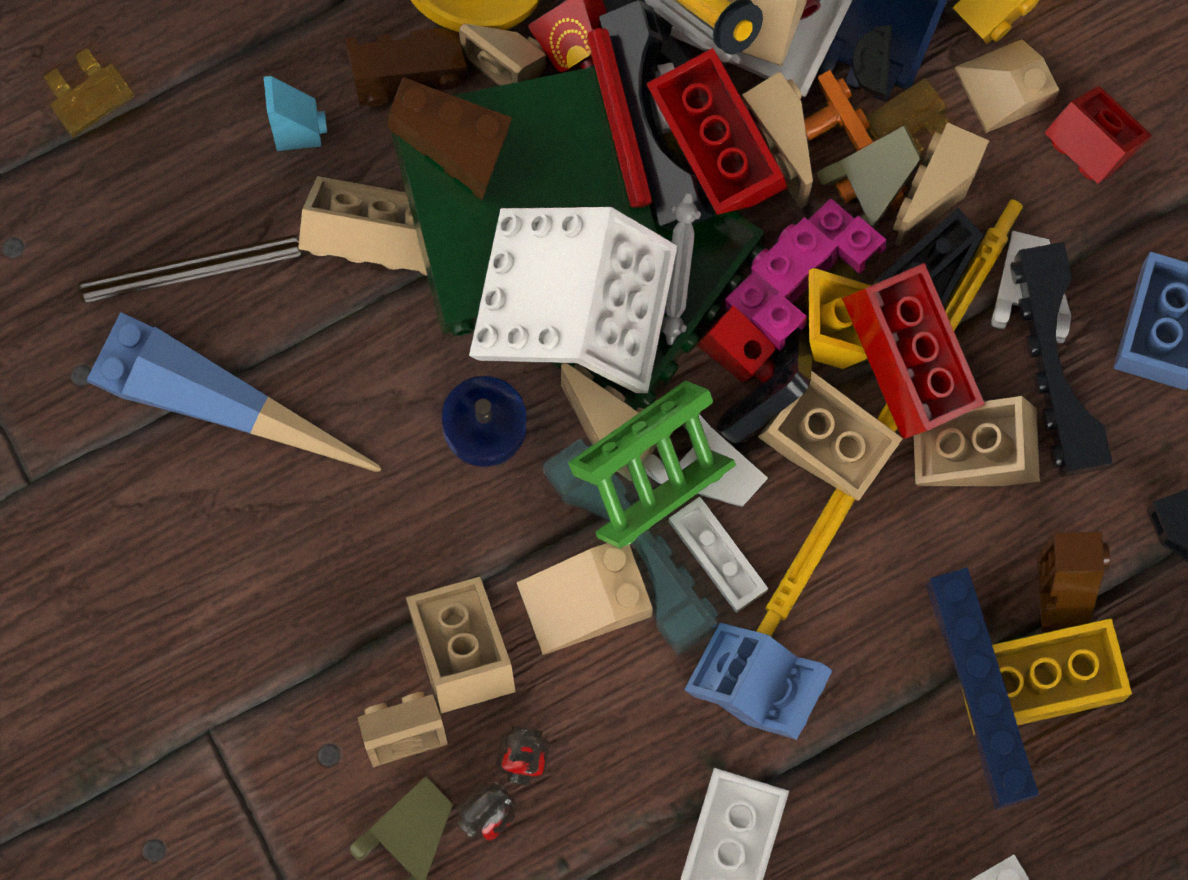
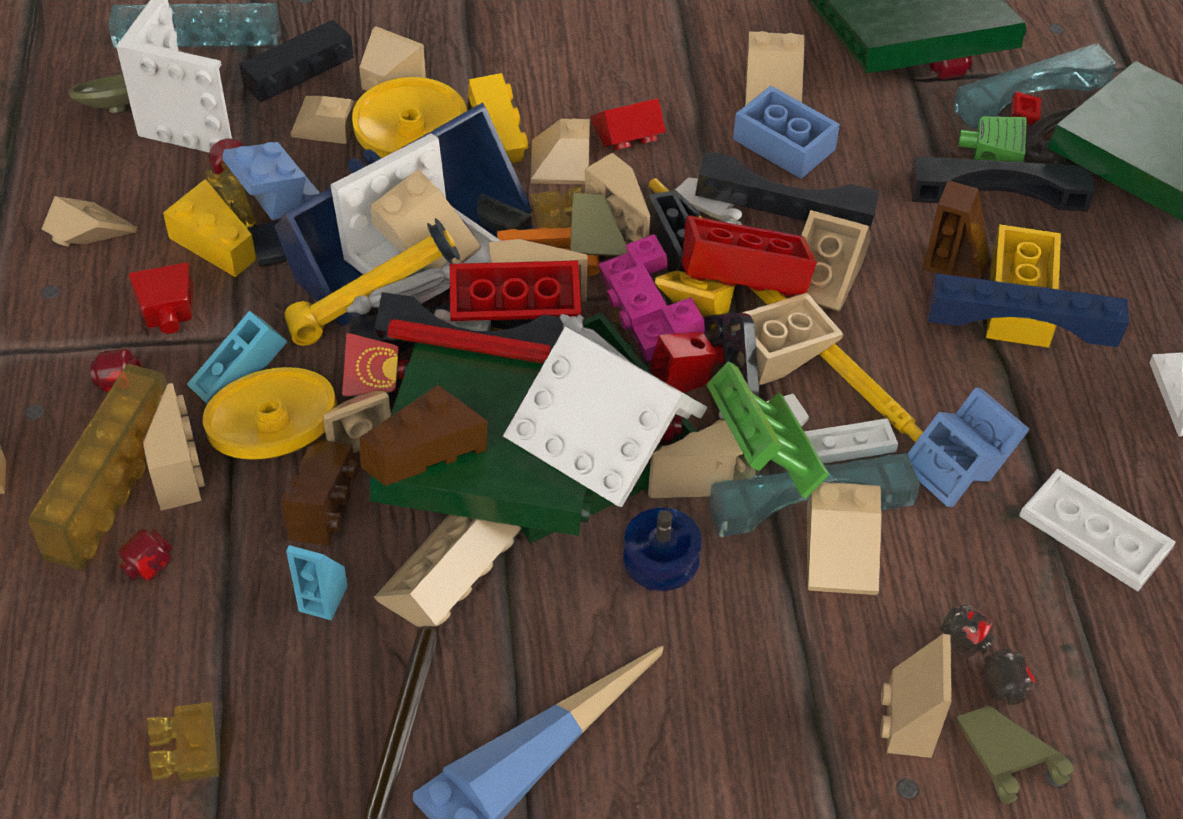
camera: 65 degrees left, 25 degrees down
(461, 645) = (849, 639): tan slope -> none

